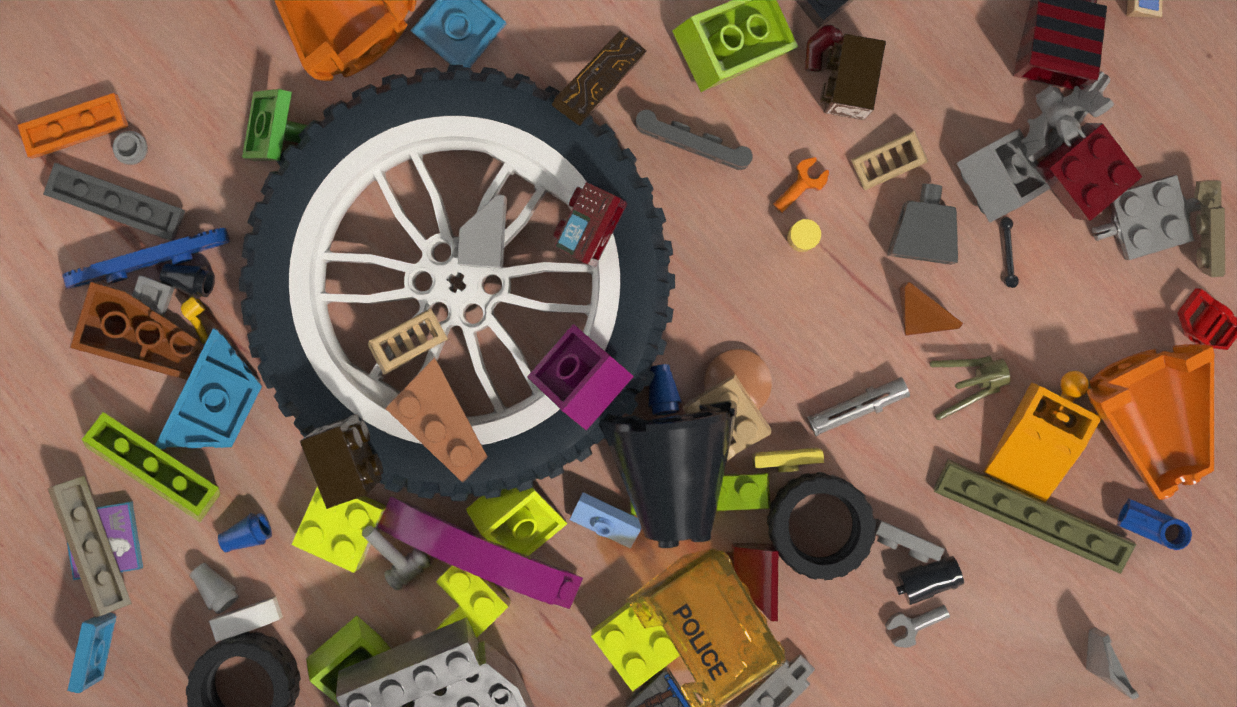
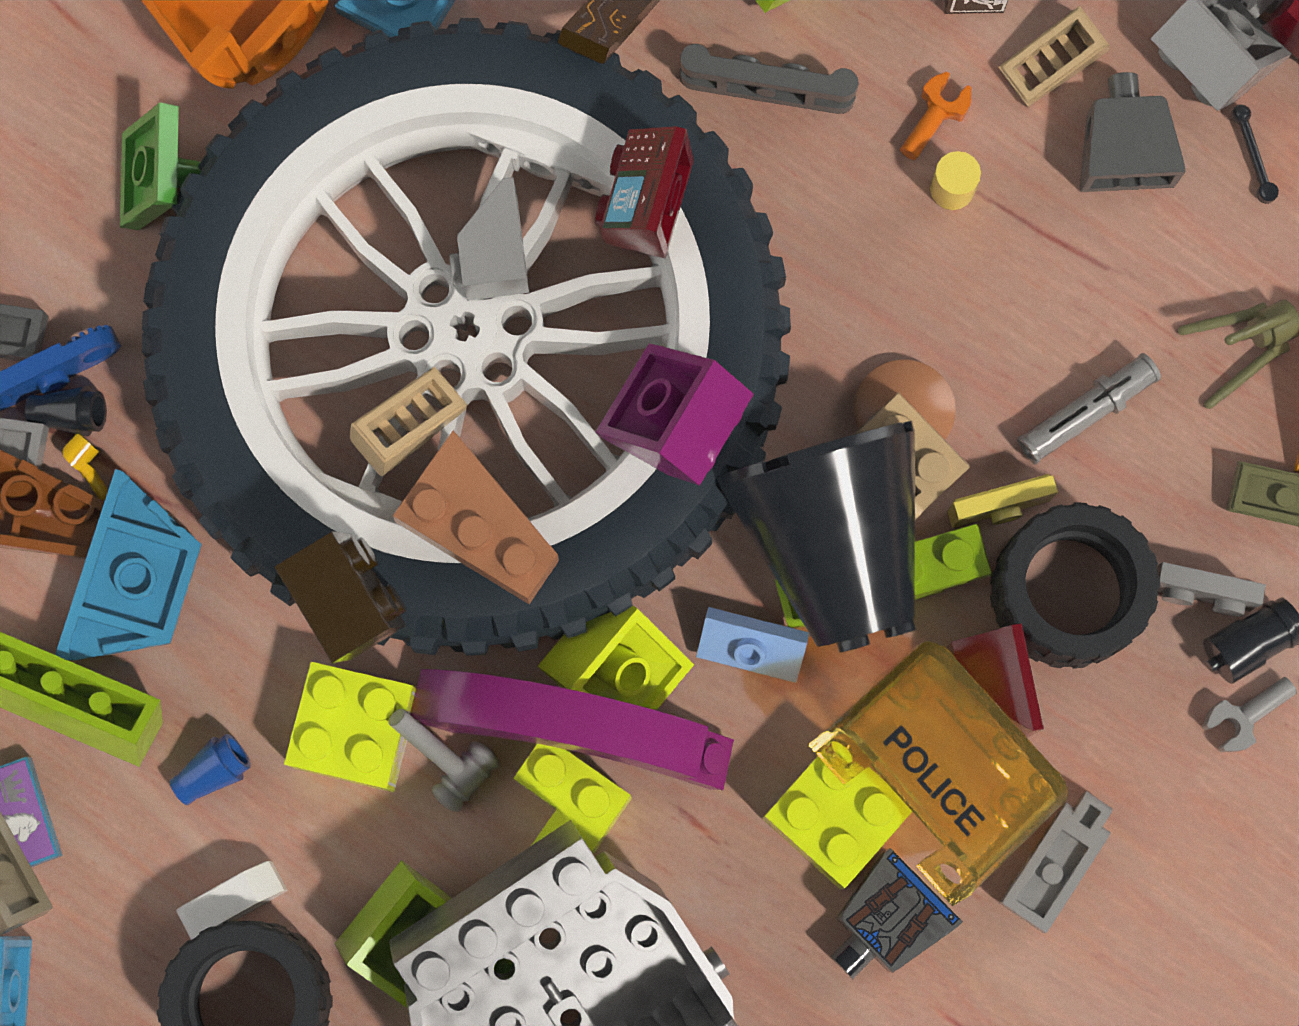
camera: 10 degrees left, 10 degrees down
(214, 589) = (177, 864): light grey cone -> none
(663, 393) = (794, 429): blue cone -> none
(924, 314) = (1154, 257): dark orange slope -> none

